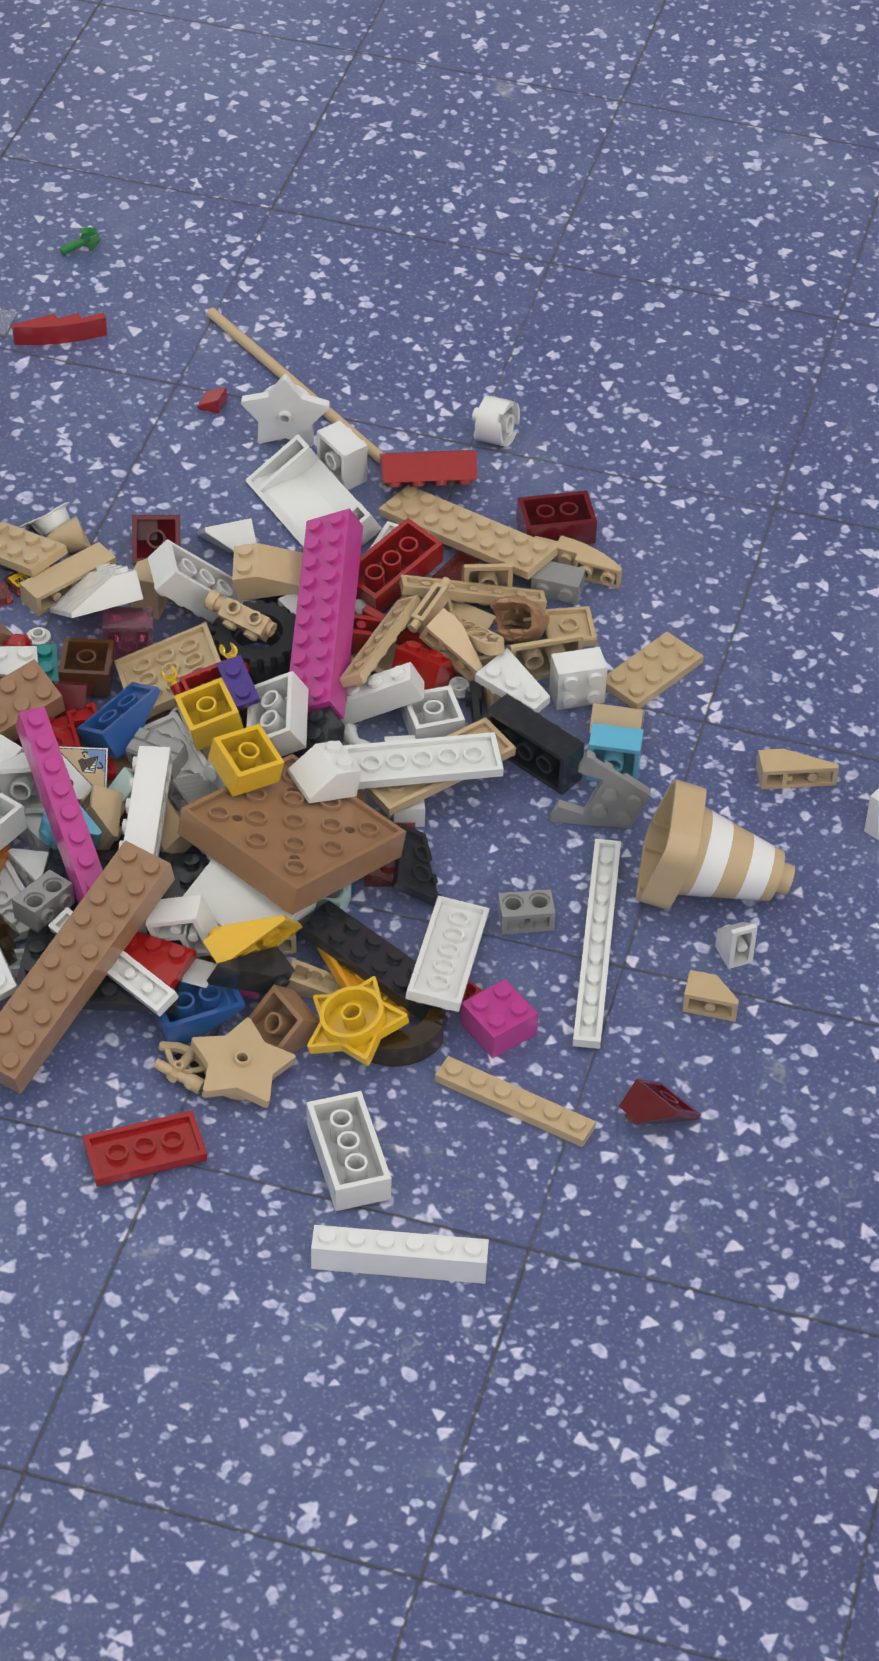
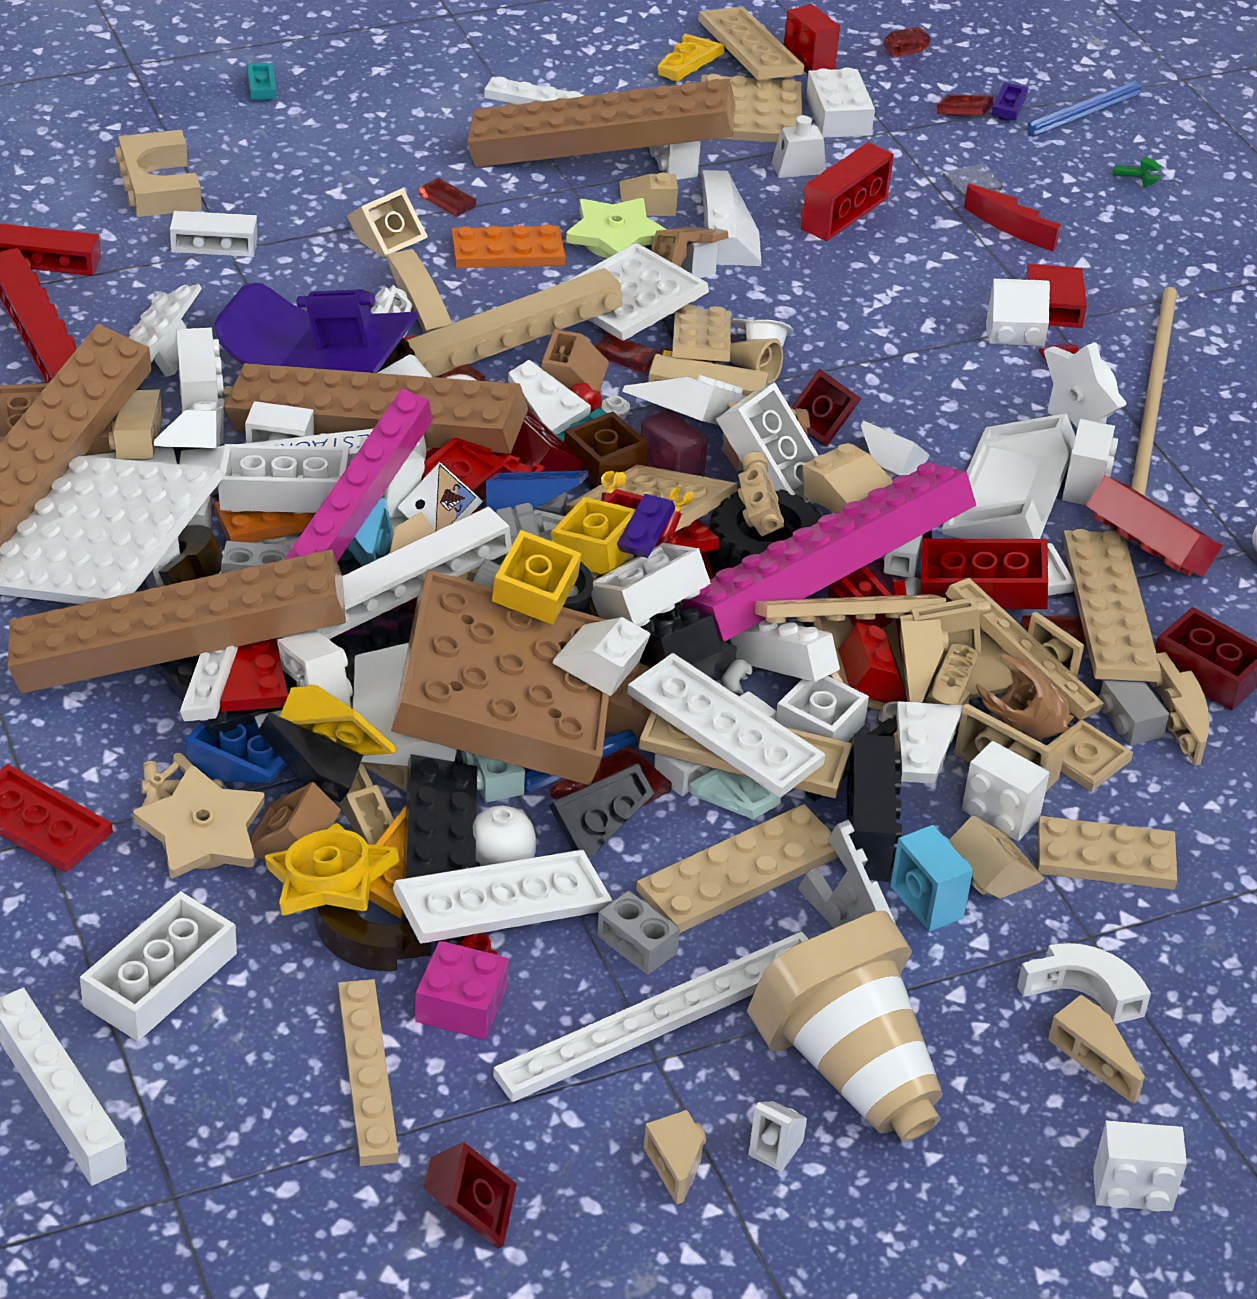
camera: 50 degrees right, 5 degrees down
(161, 364) = (1066, 294): none -> red brick
(167, 391) = (1018, 312): none -> white slope
(392, 924) = (503, 836): none -> white cylinder
(453, 799) = (734, 793): none -> light aqua wing
(512, 835) = (738, 868): none -> tan plate
(742, 735) = (1090, 971): none -> white arch

